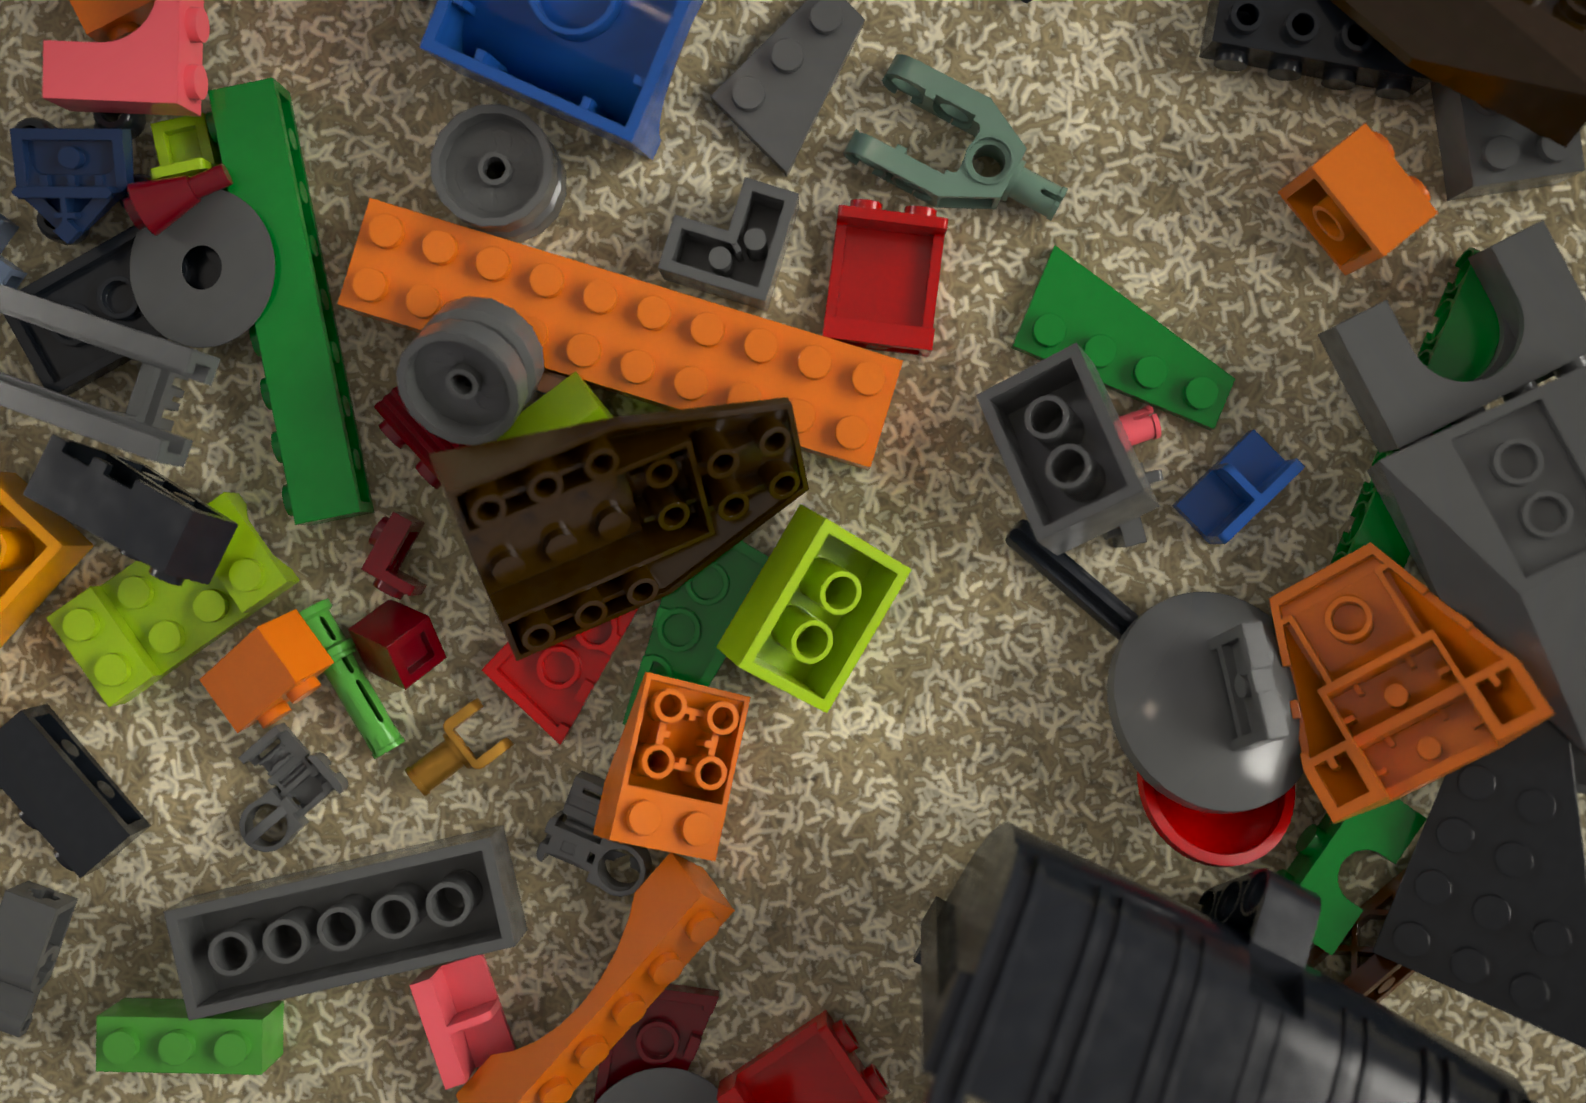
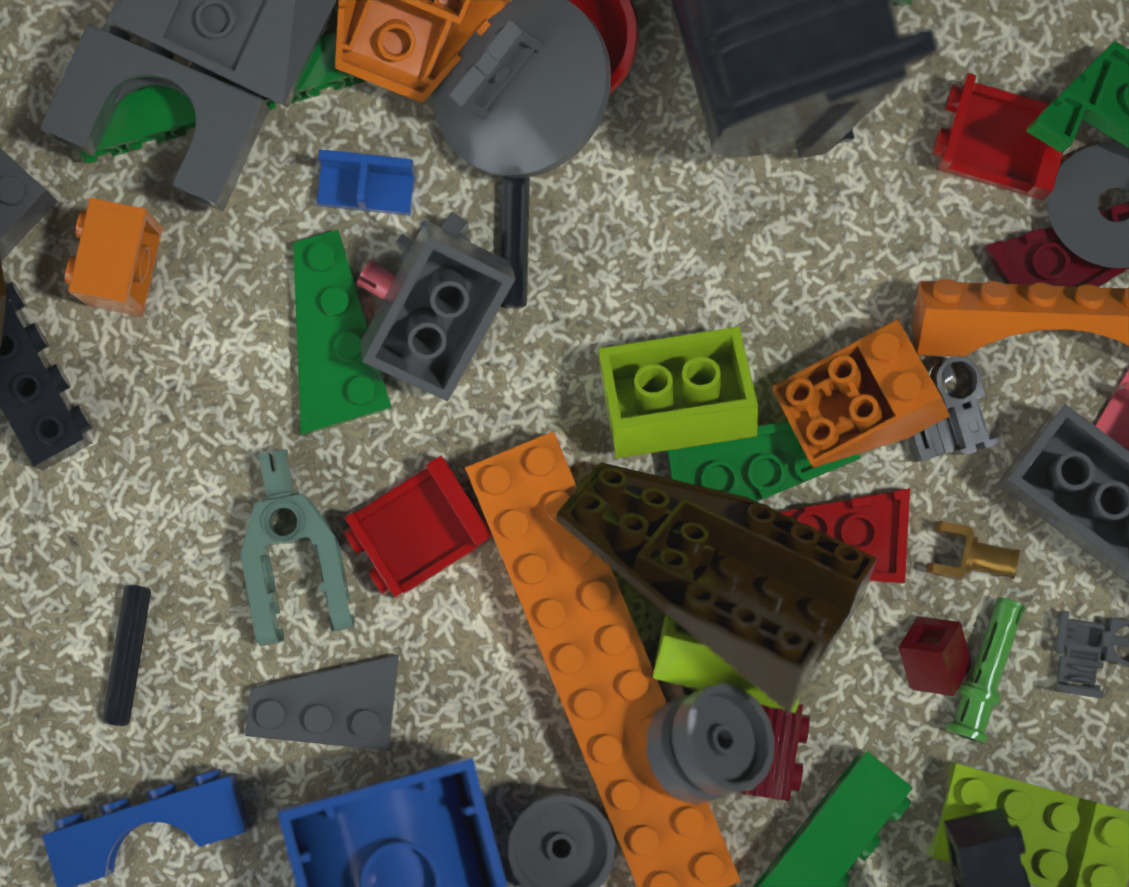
camera: 130 degrees left, 5 degrees down
(266, 671) = (1028, 724): orange brick -> none
(391, 544) = (869, 717): dark red bracket -> none
(739, 261) = (481, 630): dark grey brick -> none

